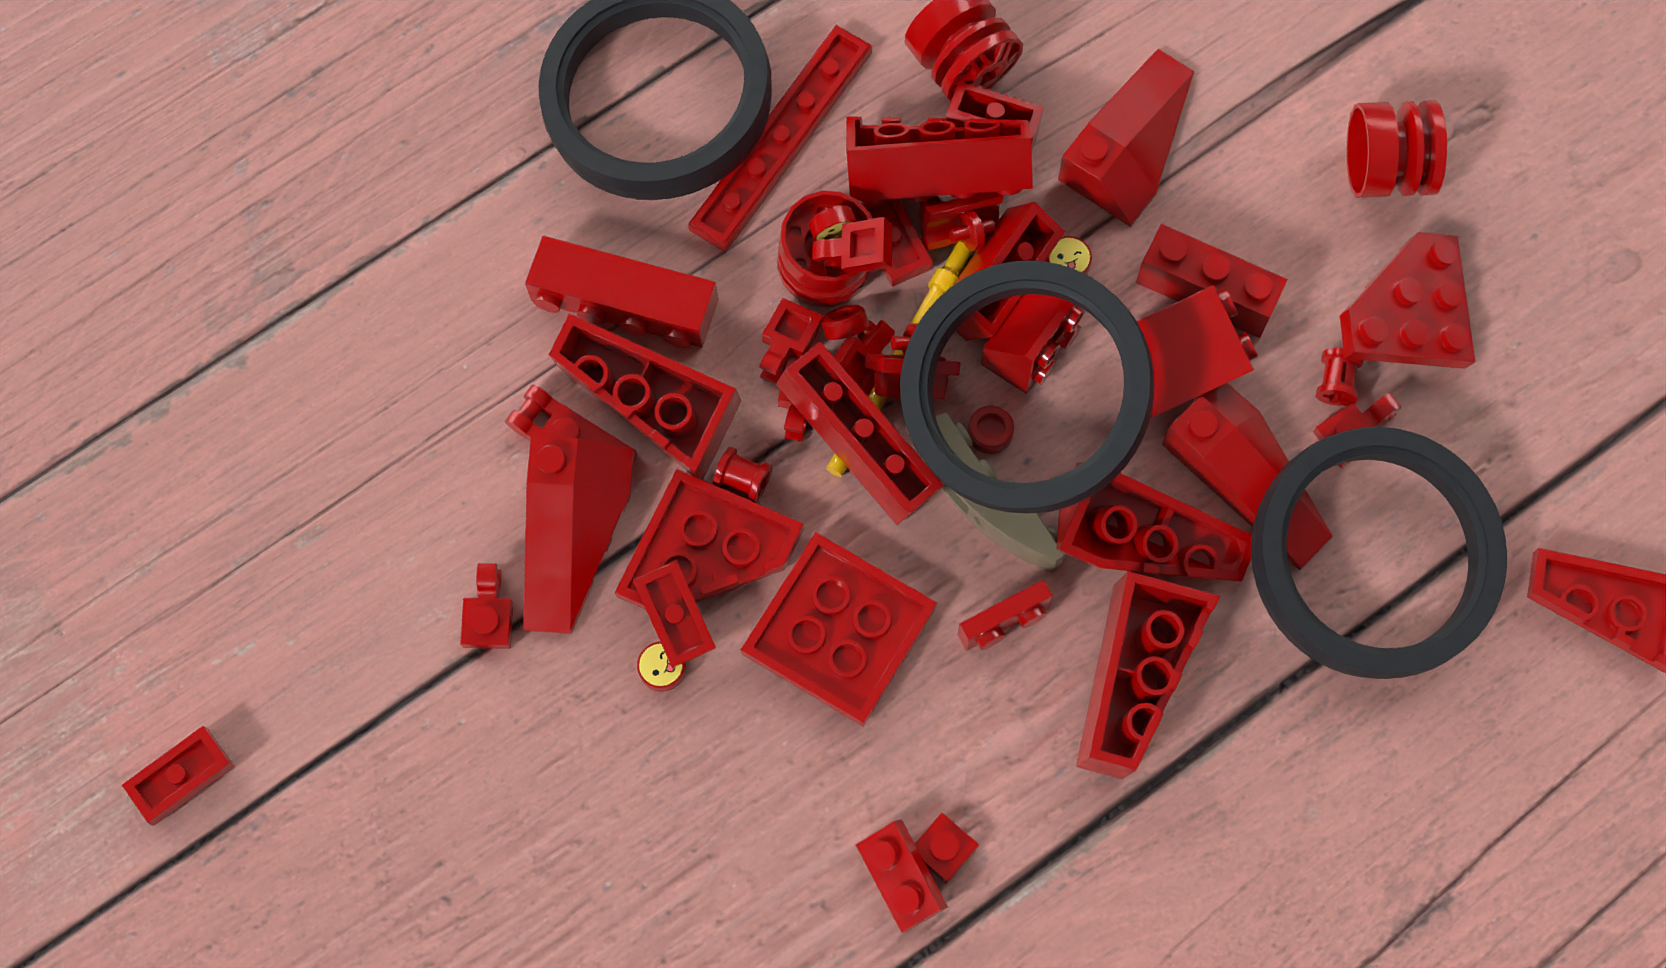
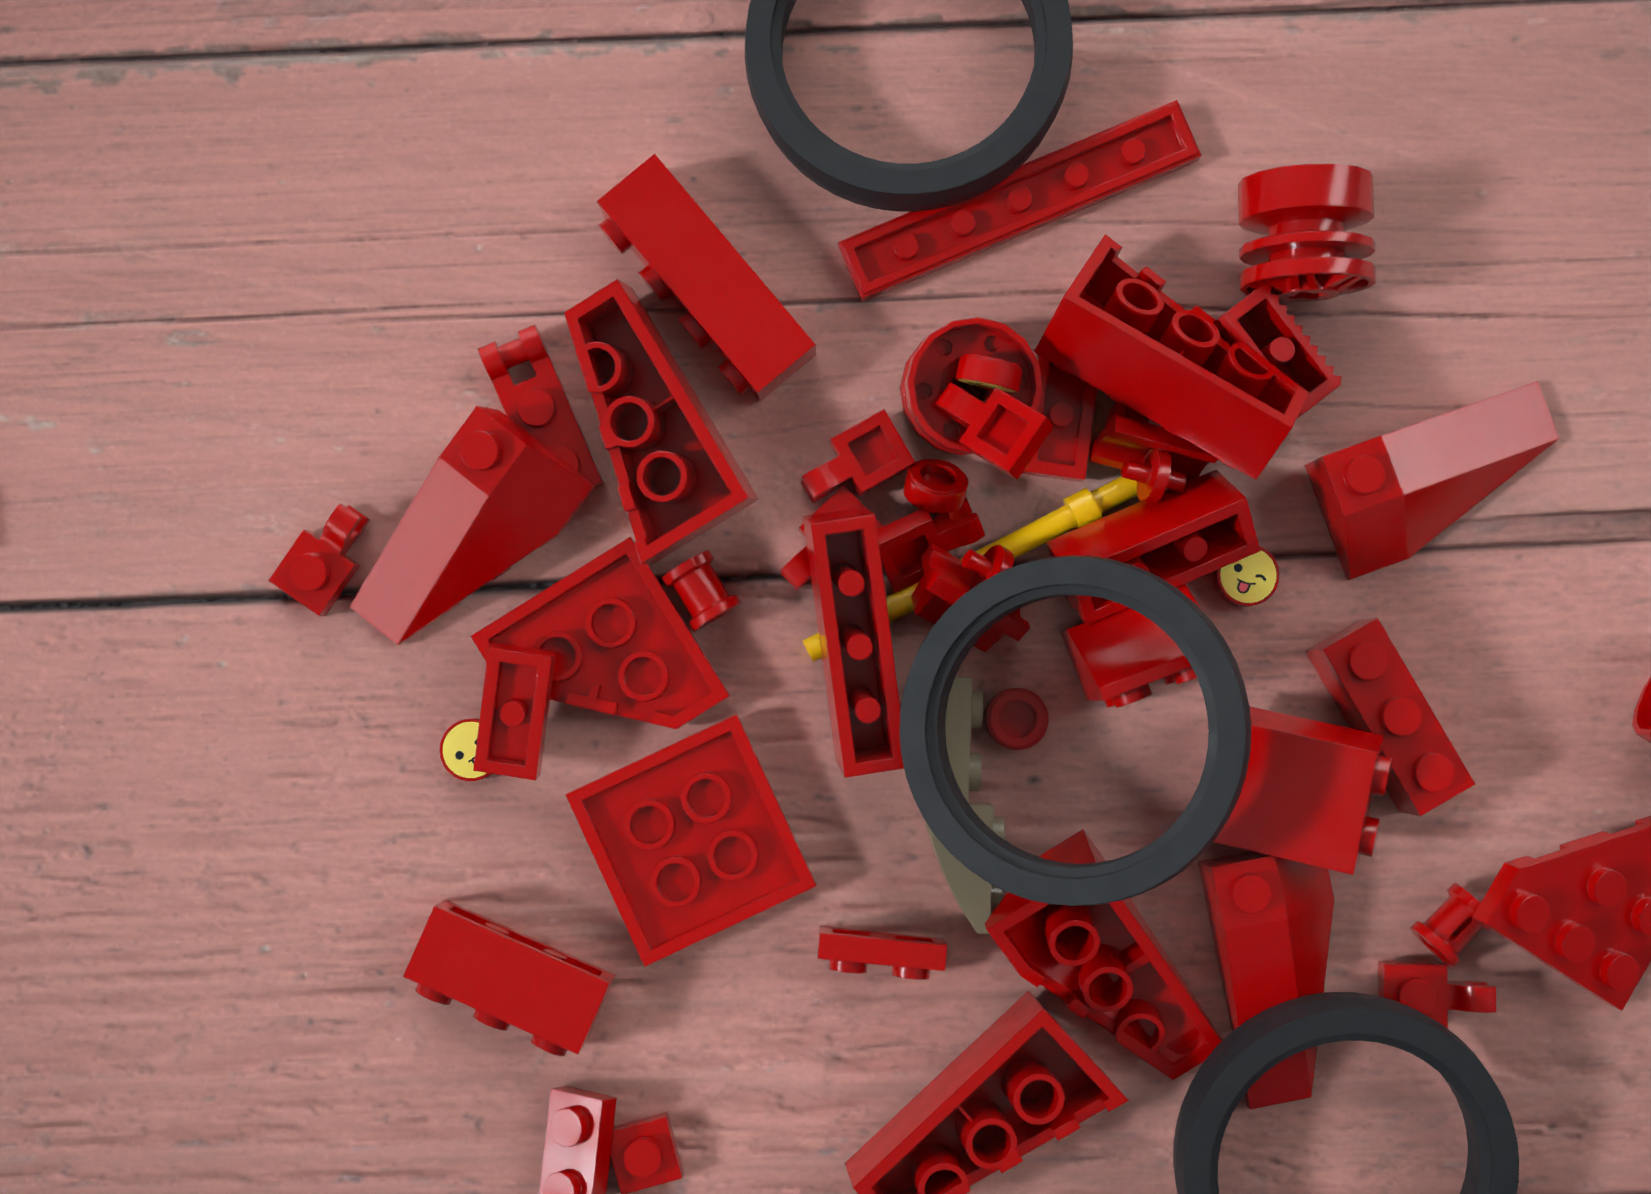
camera: 30 degrees right, 15 degrees up
(781, 789) = (508, 978): none -> red brick

